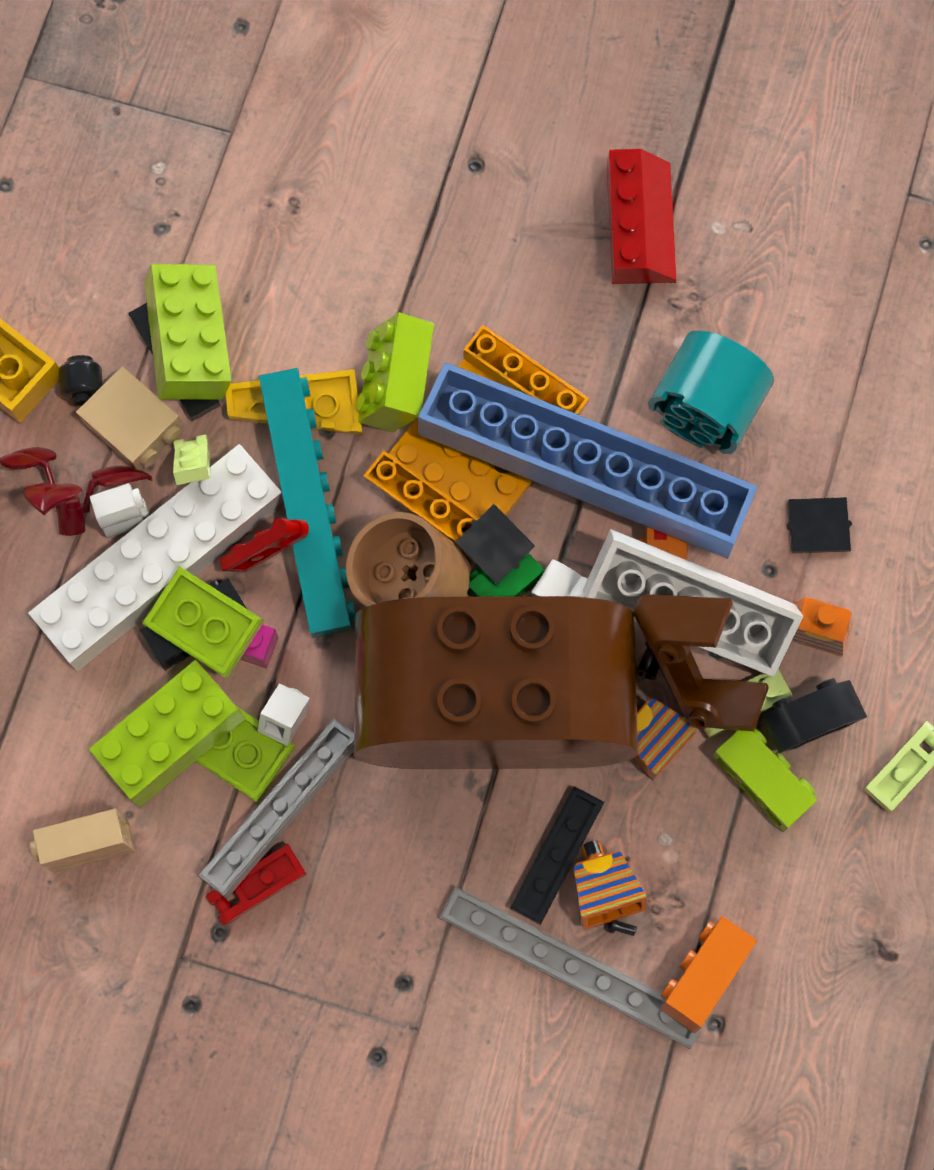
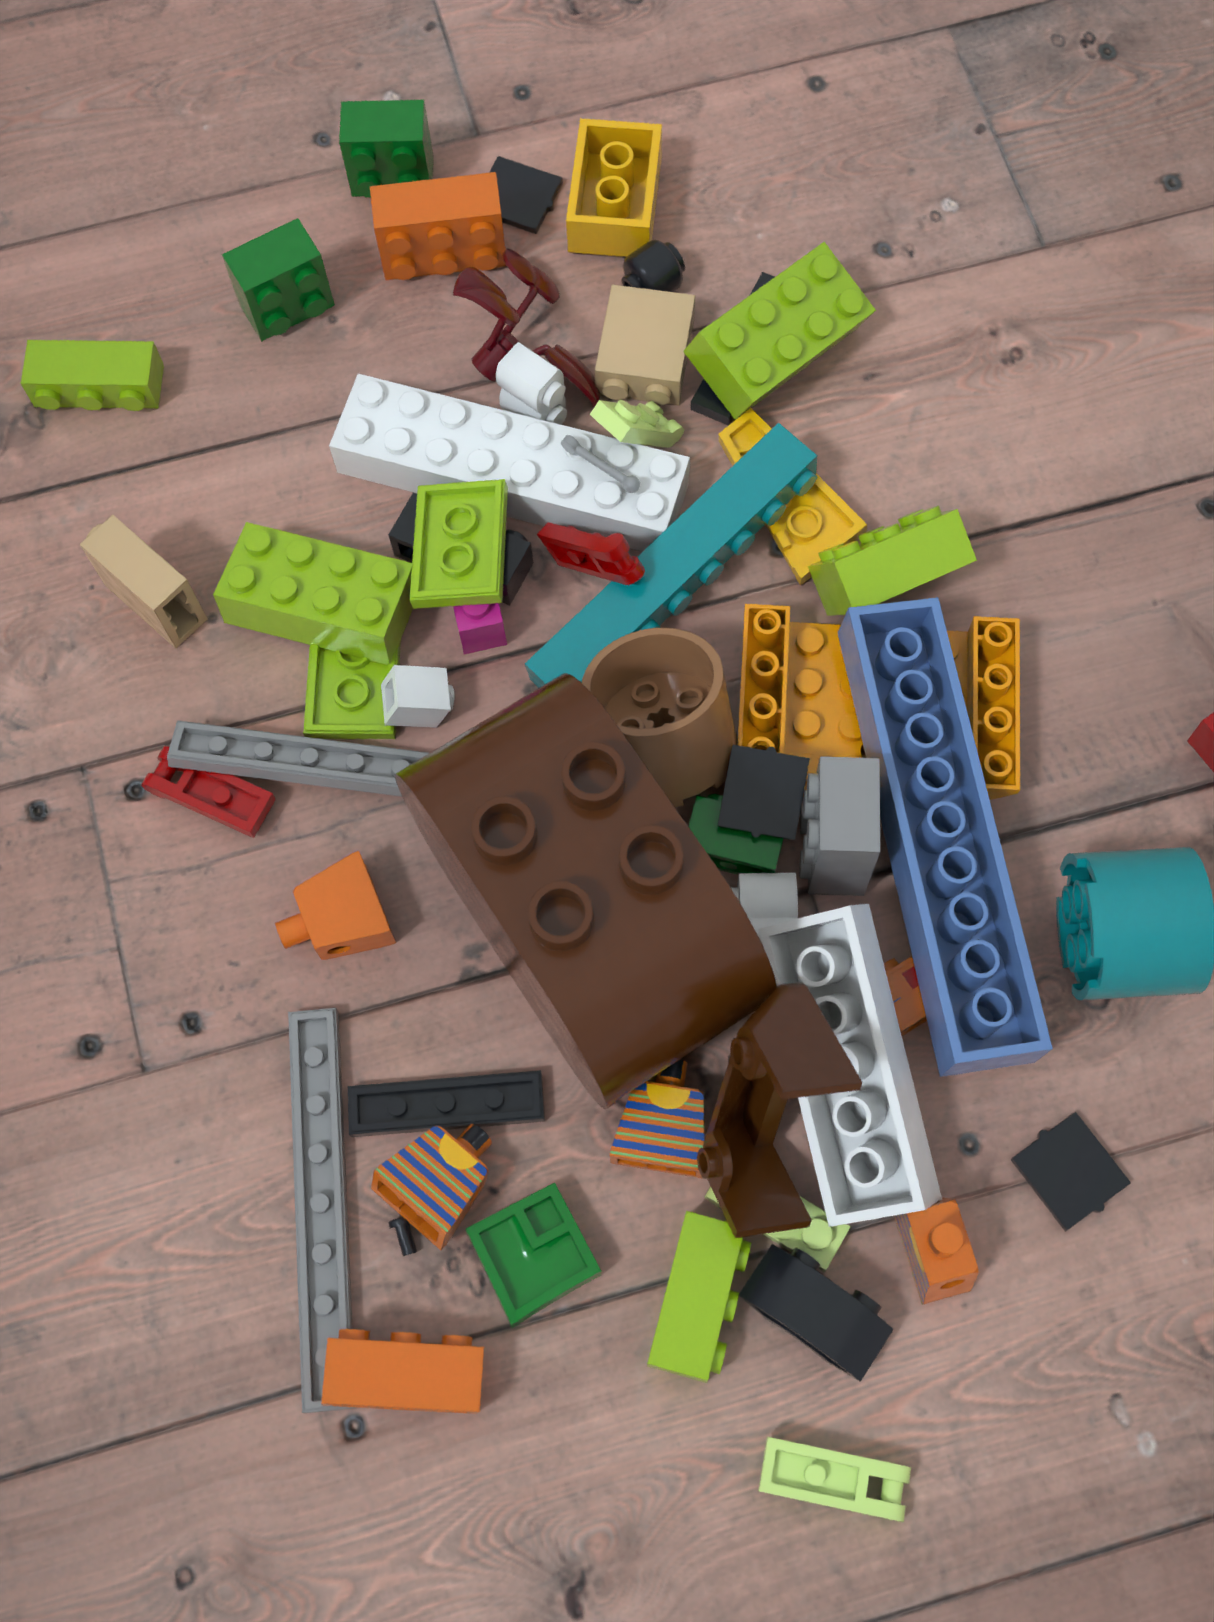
camera: 60 degrees right, 5 degrees down
(236, 491) = (630, 483): none -> light grey hinge
(395, 848) = (338, 912): none -> orange torso
(549, 513) = (841, 826): none -> light grey brick
(681, 856) = (533, 1253): none -> green plate

